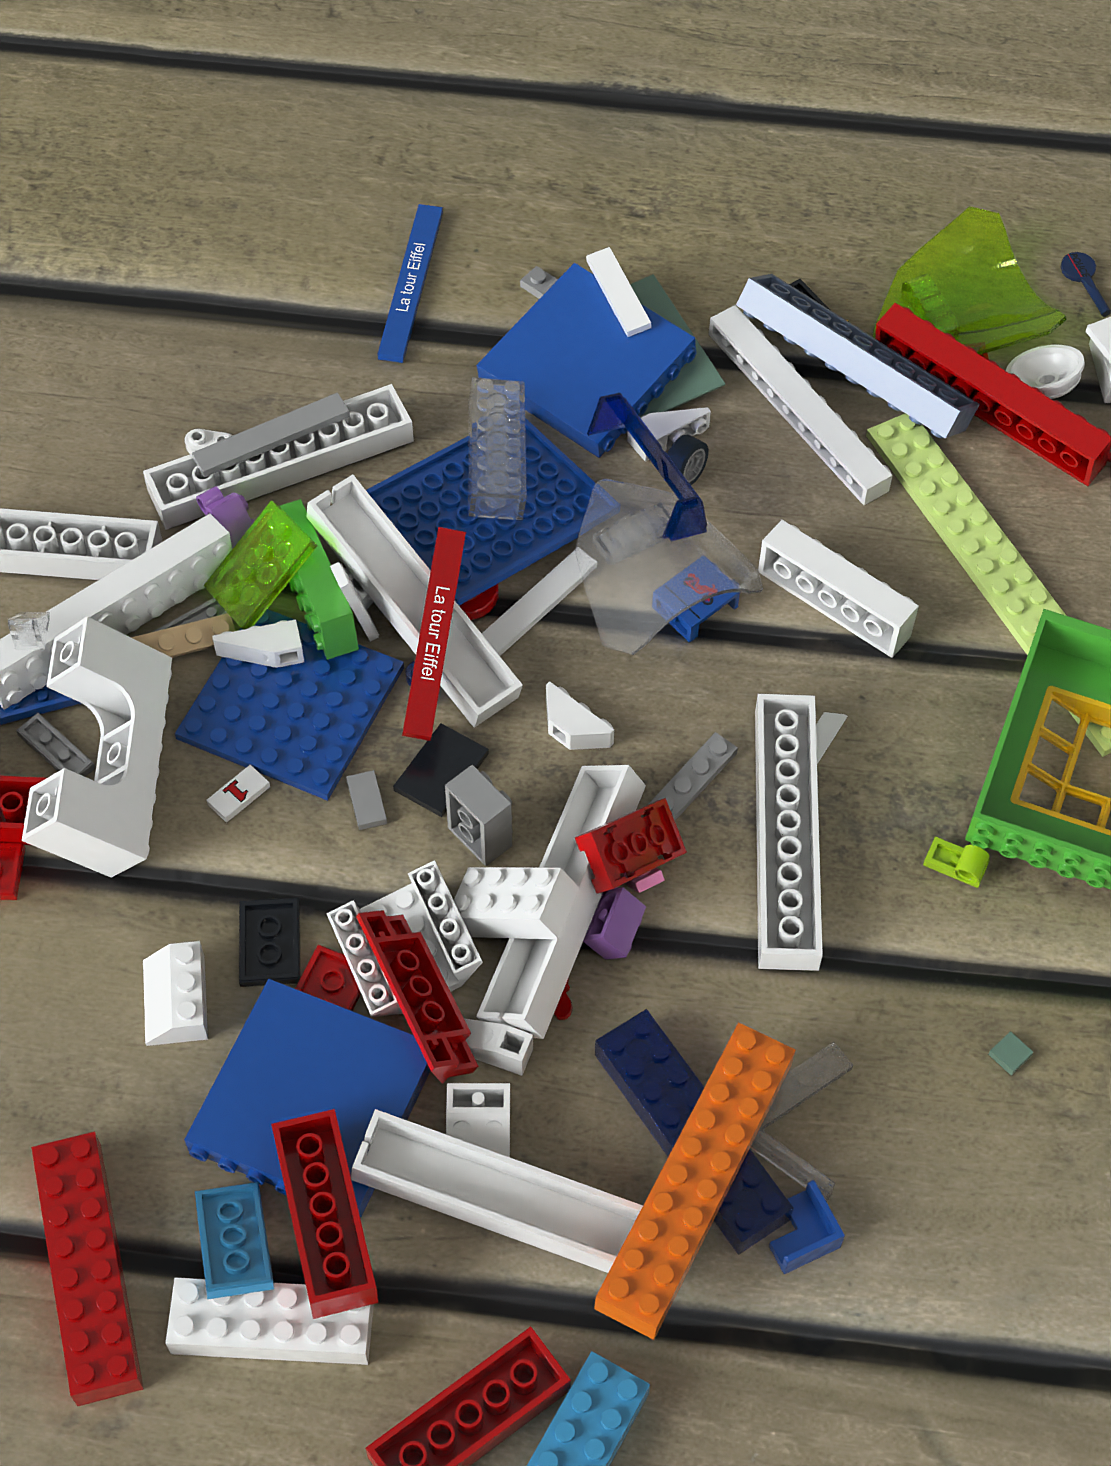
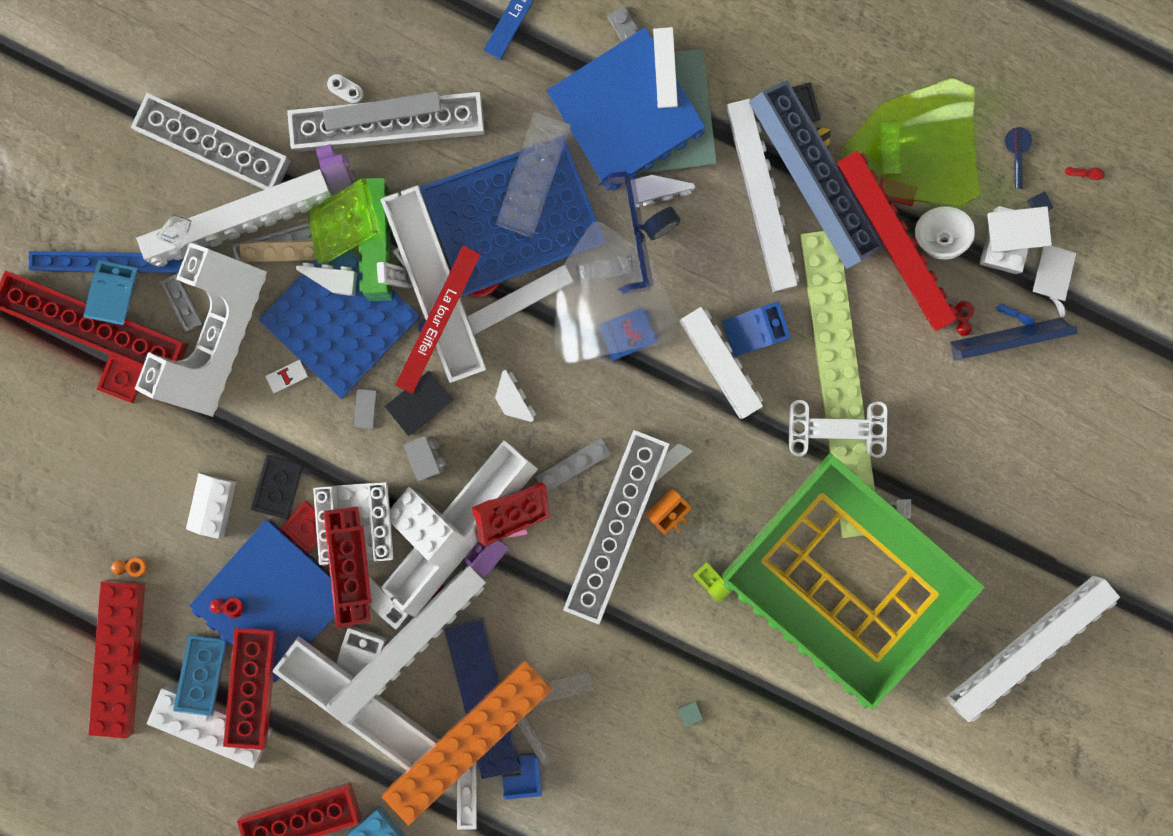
camera: 20 degrees right, 30 degrees up
(56, 1129) = (120, 567): none -> orange plate
(256, 1113) = (218, 606): none -> red plate
(544, 1070) = (405, 645): none -> white piece
(726, 1290) = (467, 799): none -> white plate
(852, 788) = (668, 512): none -> orange brick
(871, 535) = (756, 329): none -> blue slope
(1023, 615) = (839, 428): none -> white beam

